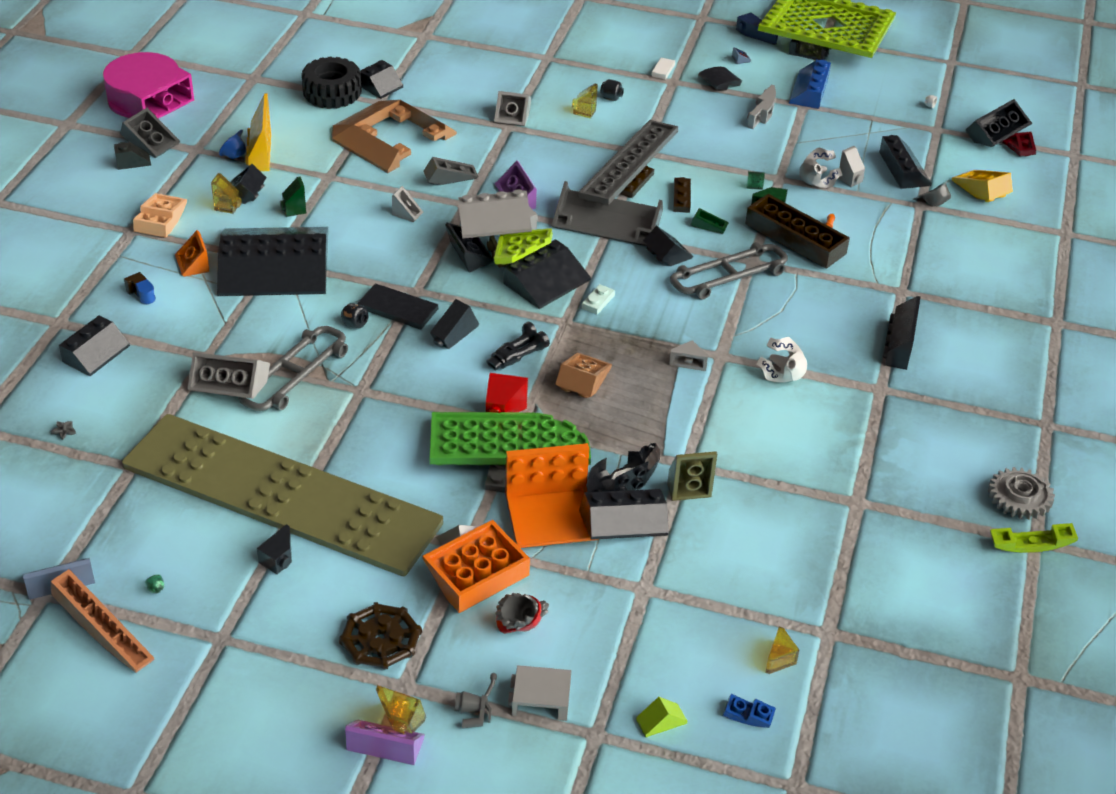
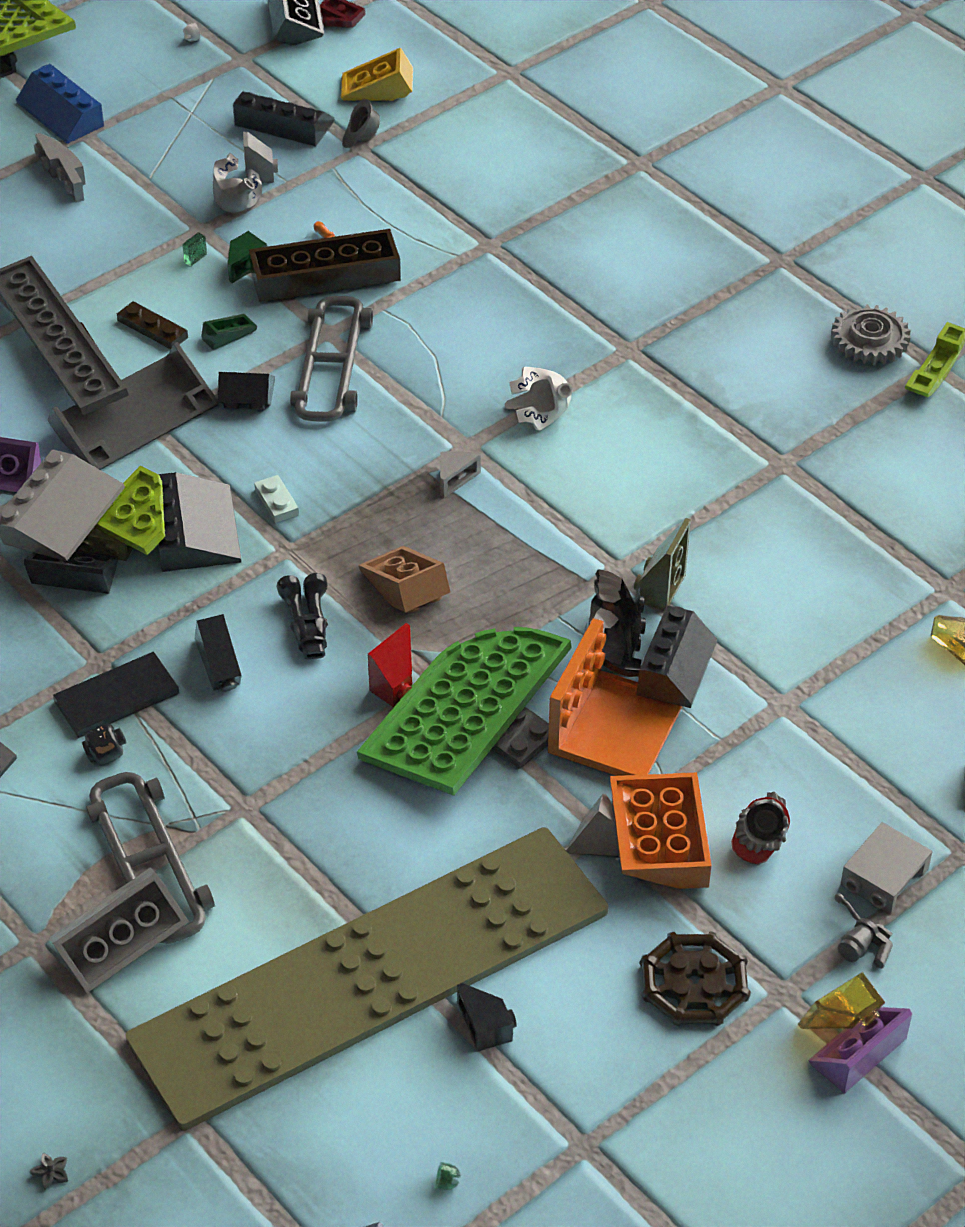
camera: 55 degrees left, 5 degrees up
(901, 334) = (573, 278): black slope -> none

